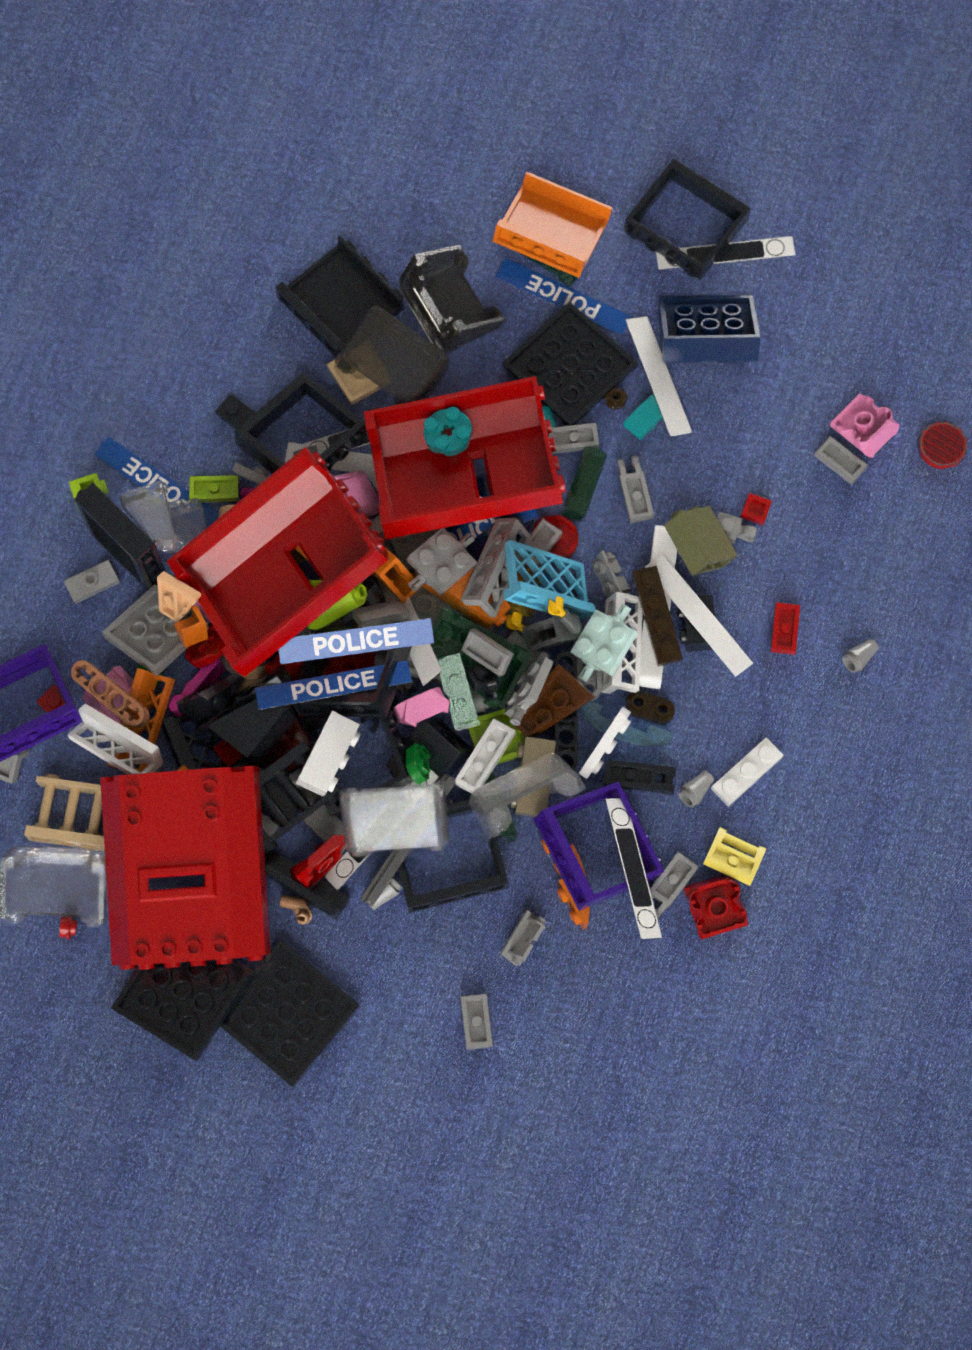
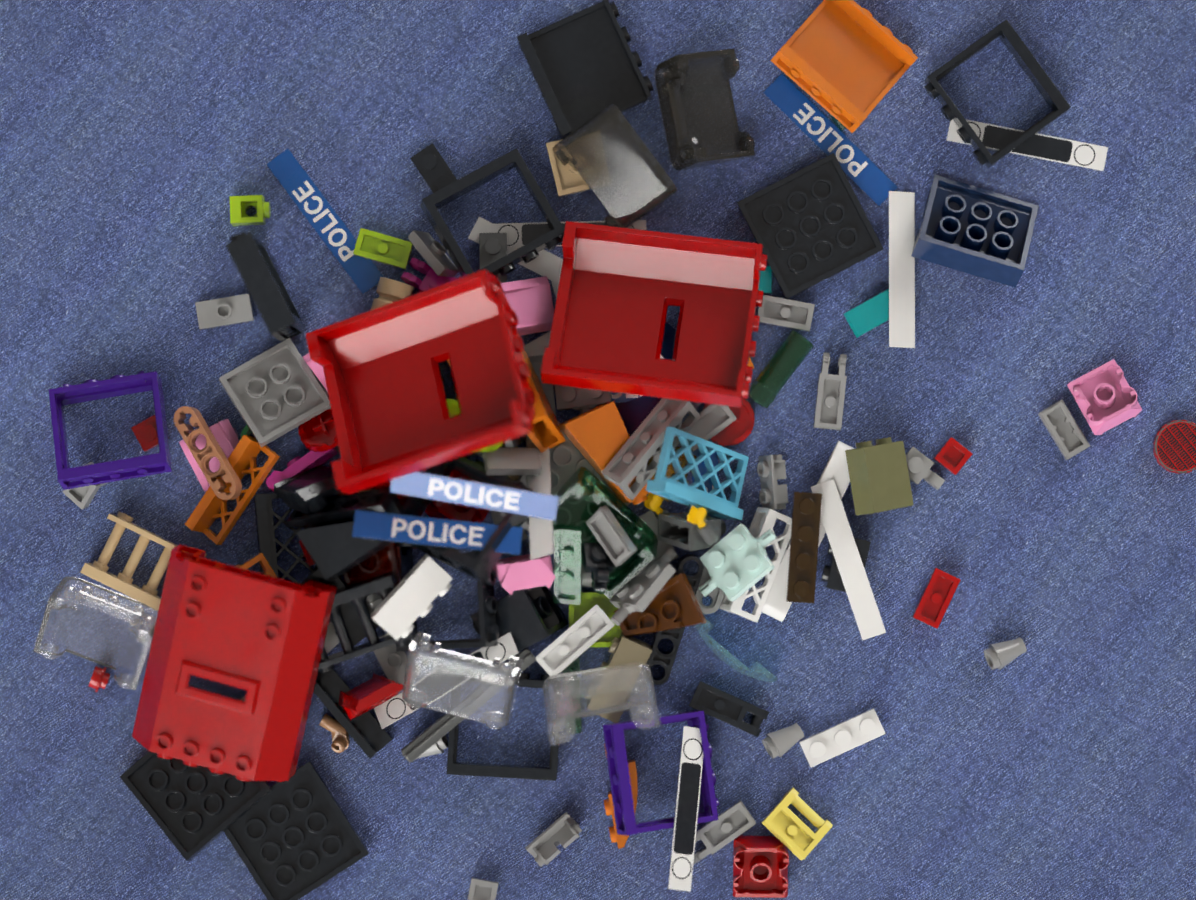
camera: 20 degrees right, 15 degrees up
(121, 741) = (204, 504): white fence -> none
(165, 523) = (321, 286): clear windscreen -> none
(175, 597) = (304, 372): light nougat wing -> none
(192, 629) = (311, 409): orange panel -> none
(418, 763) = (500, 635): green plate -> none
(441, 561) = (594, 425): light grey plate -> none
(445, 419) = (662, 281): teal plate -> none
(606, 744) = (703, 668): white plate -> none
(616, 404) = (854, 280): dark brown plate -> none
(649, 709) = (765, 637): dark brown plate -> none

